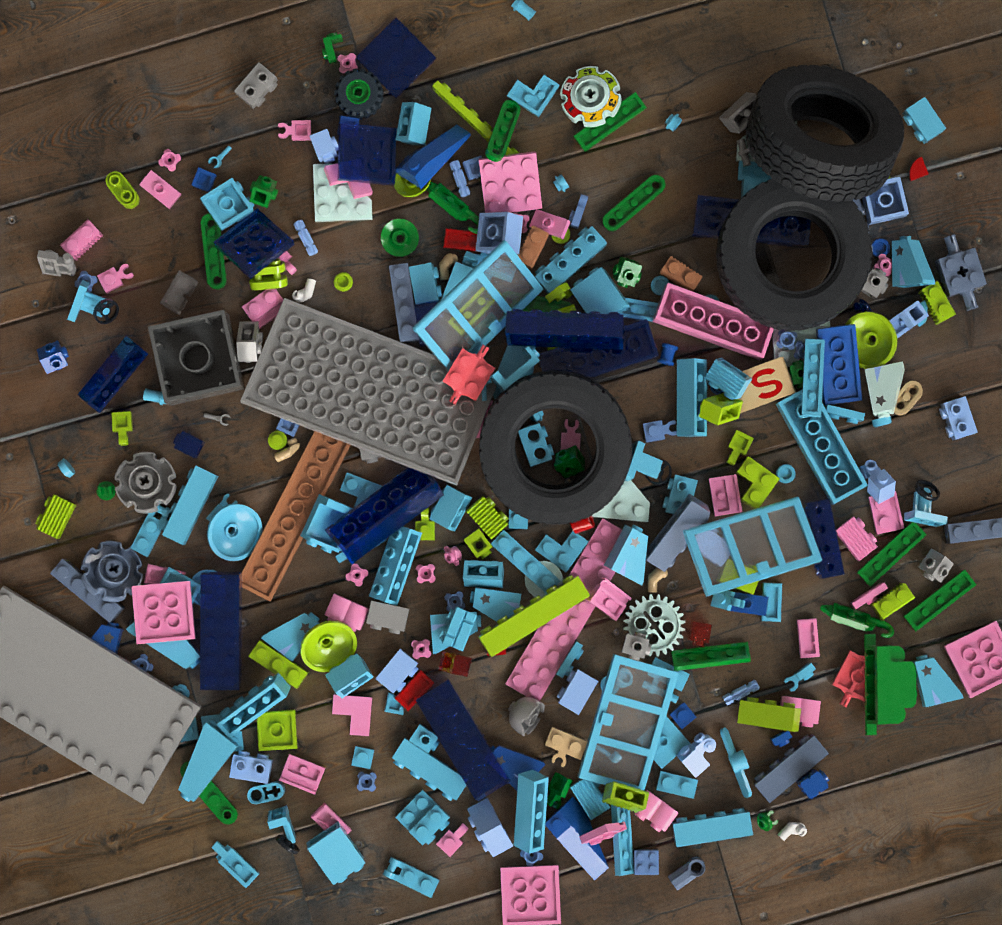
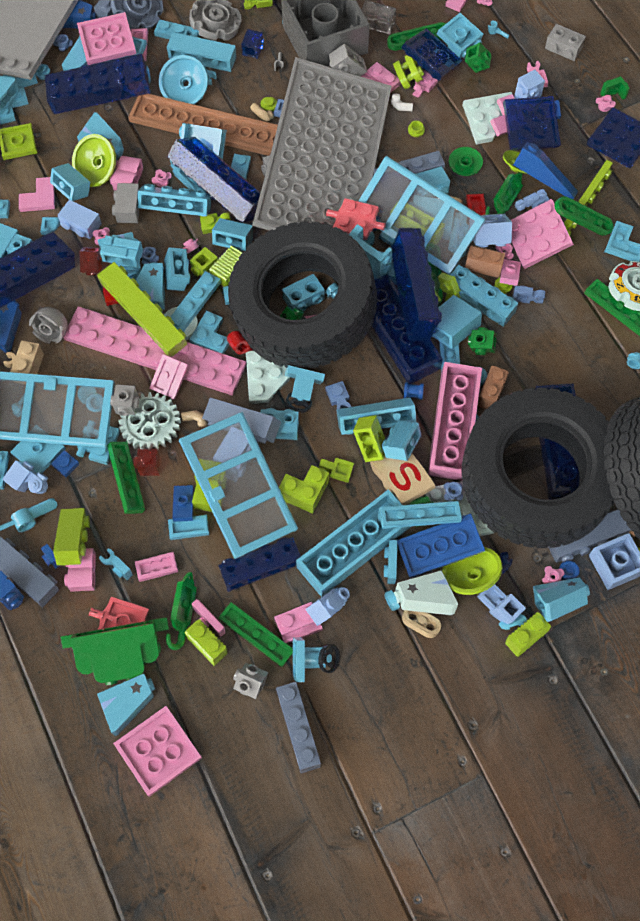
camera: 80 degrees right, 20 degrees down
(204, 180) = (477, 19): blue plate -> none
(253, 705) = (35, 112): medium azure brick -> none
(278, 663) = (67, 137): lime brick -> none
(305, 237) = (447, 97): light blue axle -> none
(359, 93) = (582, 111): black wheel -> none
(413, 123) = (569, 154): medium azure brick -> none
(413, 690) = (69, 237): red plate -> none
(429, 569) = (171, 225): bright pink plate -> none
(560, 183) = (550, 277): medium azure plate -> none
(574, 653) = (107, 354): medium azure plate -> none
(577, 691) = (75, 359): light blue brick -> none
(629, 554) = (212, 383): medium azure slope -> none
(634, 203) = (549, 339): green plate -> none
(725, 495) = (288, 462): bright pink plate -> none
(726, 600) = (182, 480): medium azure plate -> none
(741, 692) = (94, 513): light blue axle -> none
(785, 473) = (319, 518): medium azure tile -> none
(856, 538) = (266, 595): bright pink brick -> none
(881, 283) = (531, 566): light grey brick -> none
(939, 600) = (215, 693): green plate -> none
(958, 418) = (411, 678): light blue brick -> none
(960, 284) = (566, 665): sand blue brick -> none

